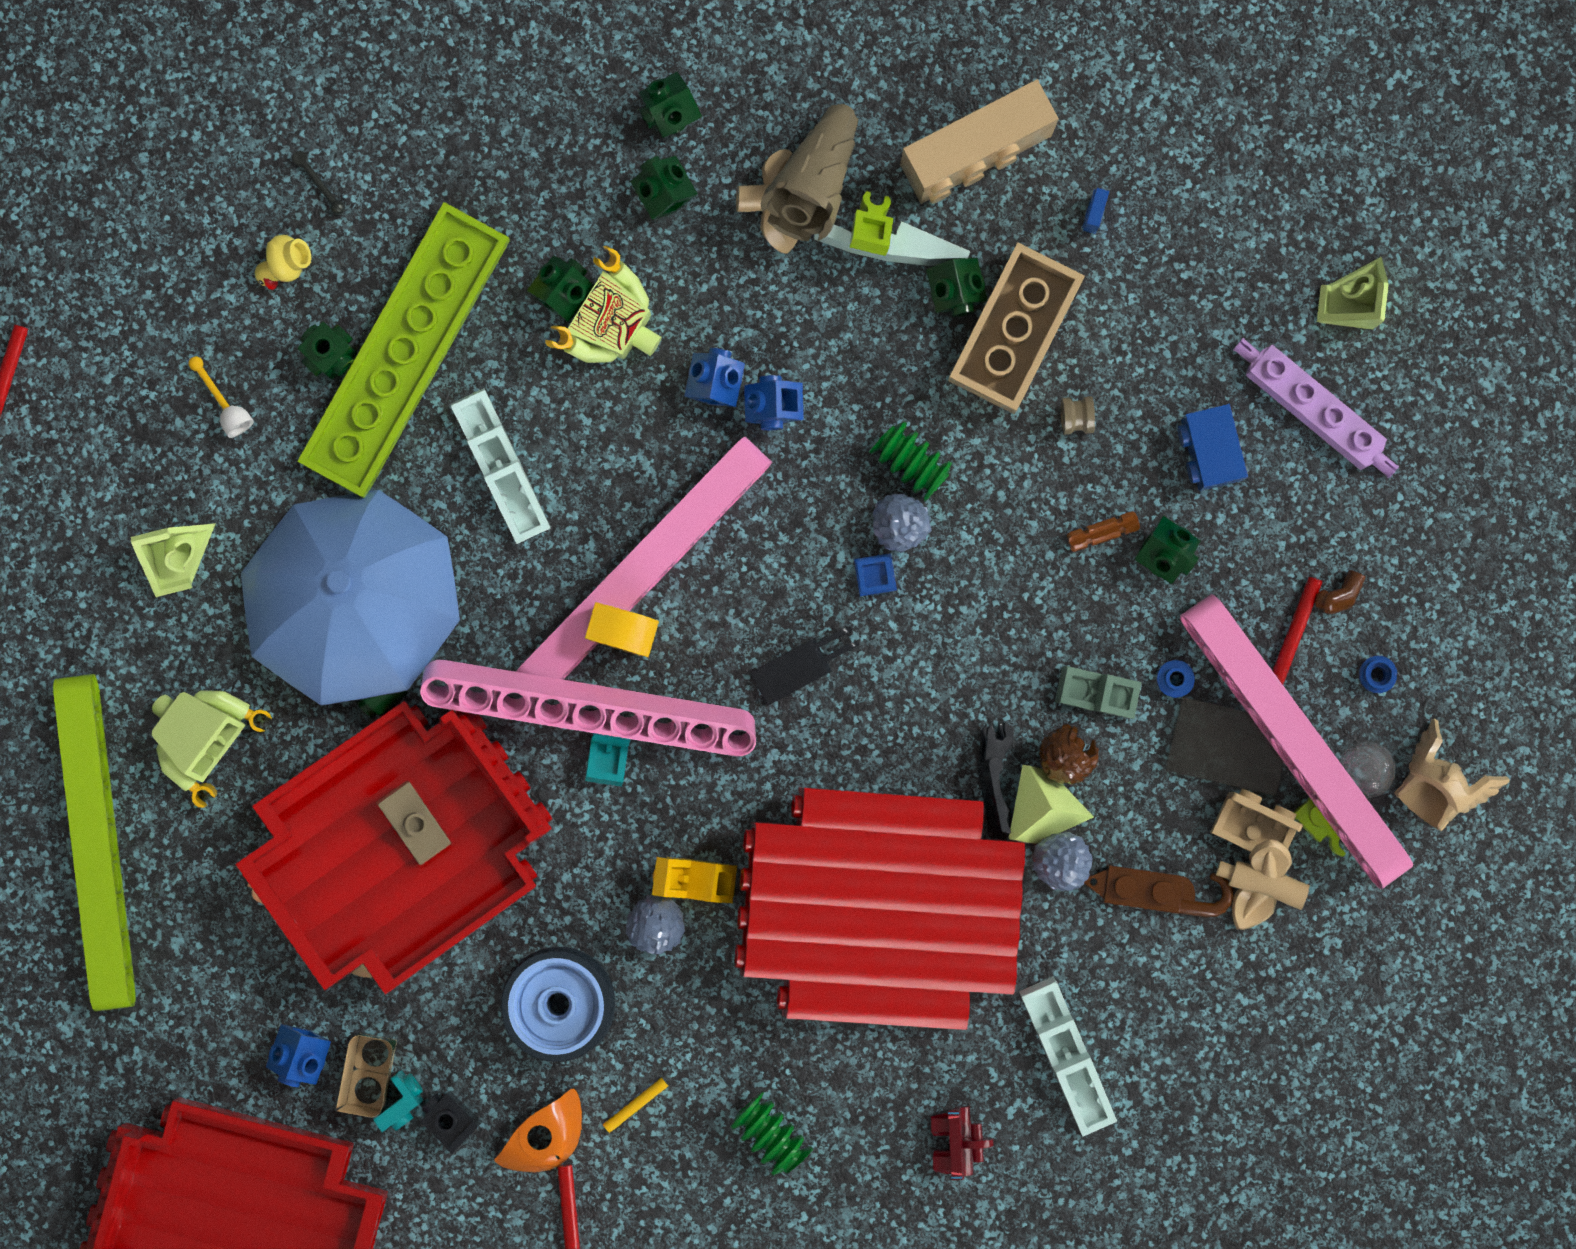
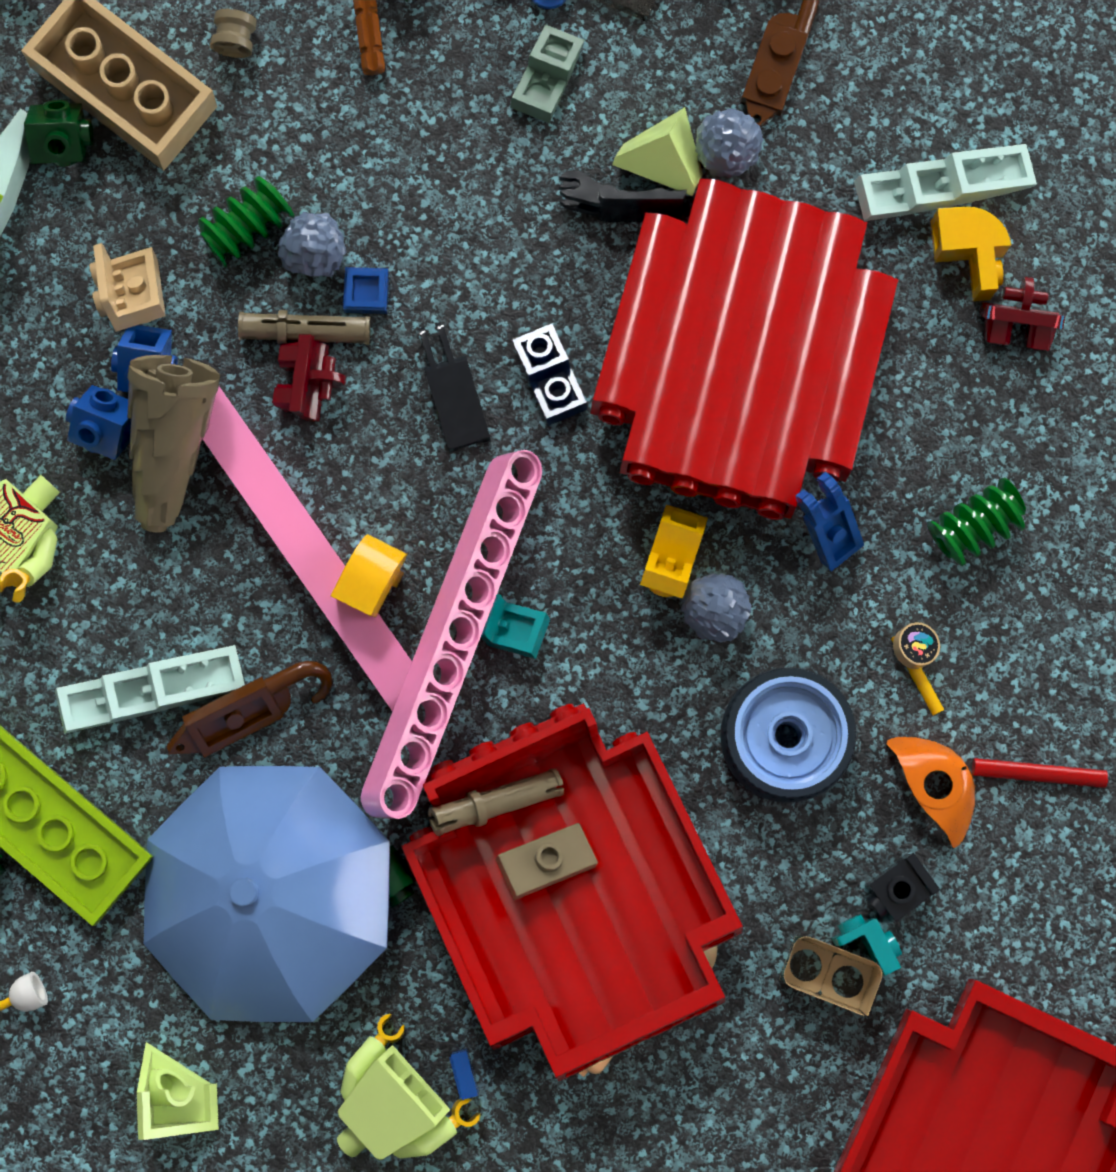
camera: 85 degrees left, 5 degrees down
(233, 788) = (464, 1074): none -> blue tile
(297, 1055) = (794, 1053): blue brick -> none
(446, 758) = (478, 807): none -> dark tan pin
(496, 548) = (245, 710): none -> reddish brown plate
(657, 1100) = (916, 645): none -> tile
(721, 436) = (168, 420): none -> dark tan cone
(741, 1008) = (830, 523): none -> blue hinge
(787, 546) = (312, 378): none -> dark red hips
(830, 529) = (287, 327): none -> dark tan pin
(831, 745) = (550, 374): none -> slope
(833, 375) = (127, 287): none -> tan bracket
(1023, 1089) = (975, 237): none -> yellow brick
(1064, 756) = (611, 117): reddish brown piece -> none

